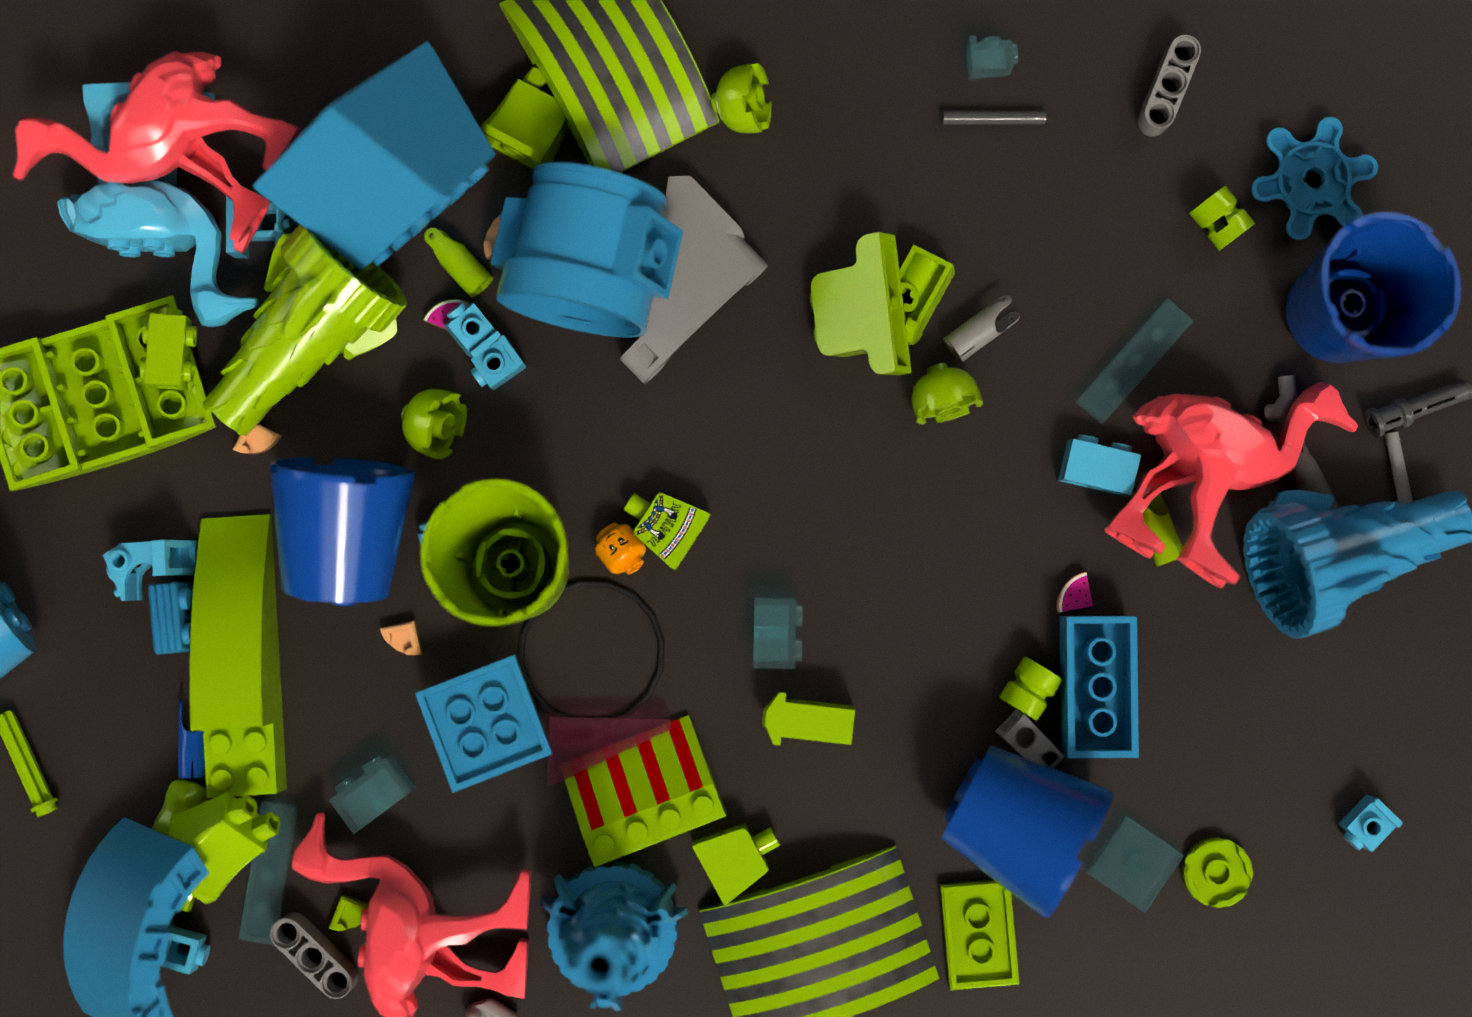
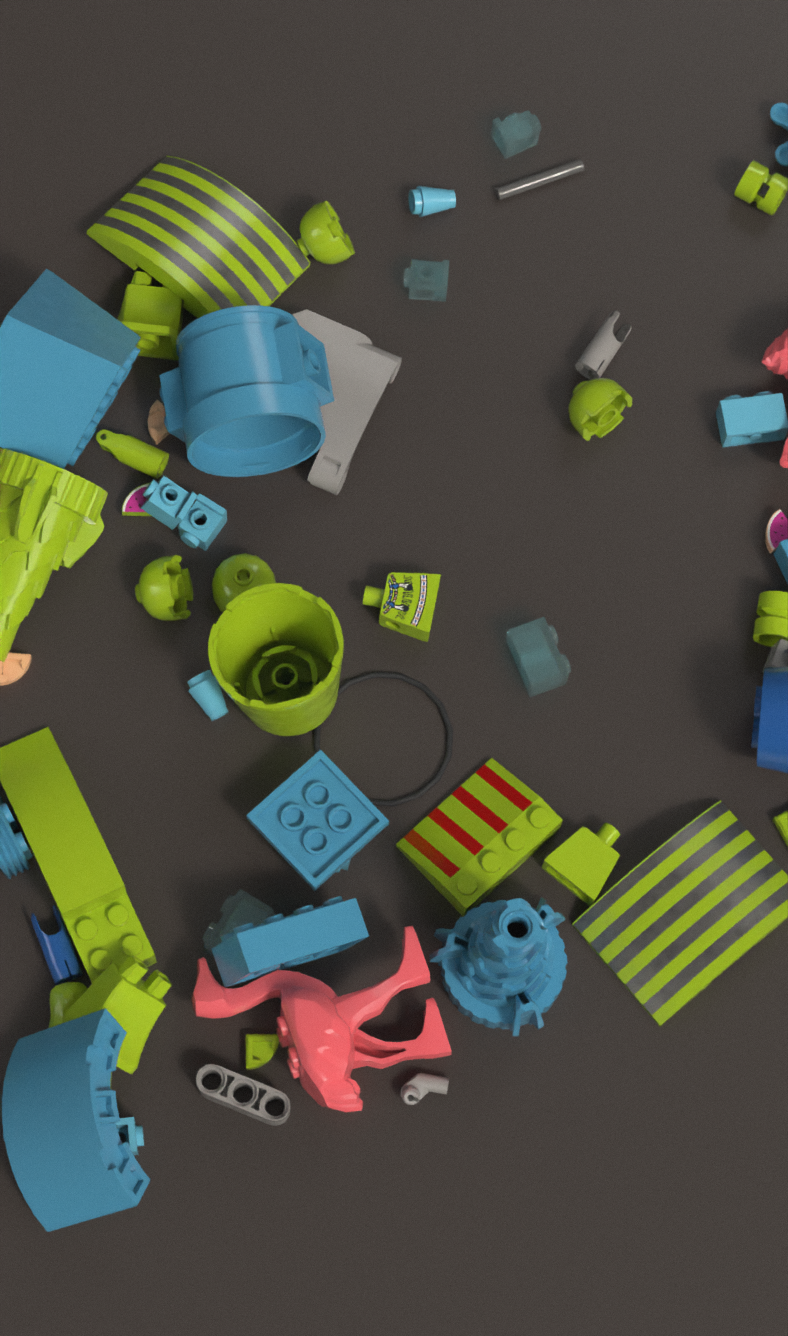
camera: 30 degrees left, 15 degrees down
(268, 877) = (173, 1054): clear light blue tile -> none
(339, 527) = (122, 696): blue cone -> none
(403, 638) = (210, 788): light nougat tile -> none
(406, 838) = (289, 940): none -> dark azure brick
(515, 460) = (238, 575): none -> lime cylinder
(589, 741) = (420, 806): clear pink wing -> none
(620, 549) = (373, 636): light orange head -> none
(808, 720) = (600, 716): lime piece -> none
(834, 198) = (430, 288): none -> clear light blue brick
(863, 308) = (497, 360): lime brick -> none
(869, 99) = (430, 200): none -> medium azure cone
(925, 281) = (539, 326): lime piece -> none
(1134, 361) = (742, 328): clear light blue tile -> none
(1180, 74) = (672, 91): light grey beam -> none

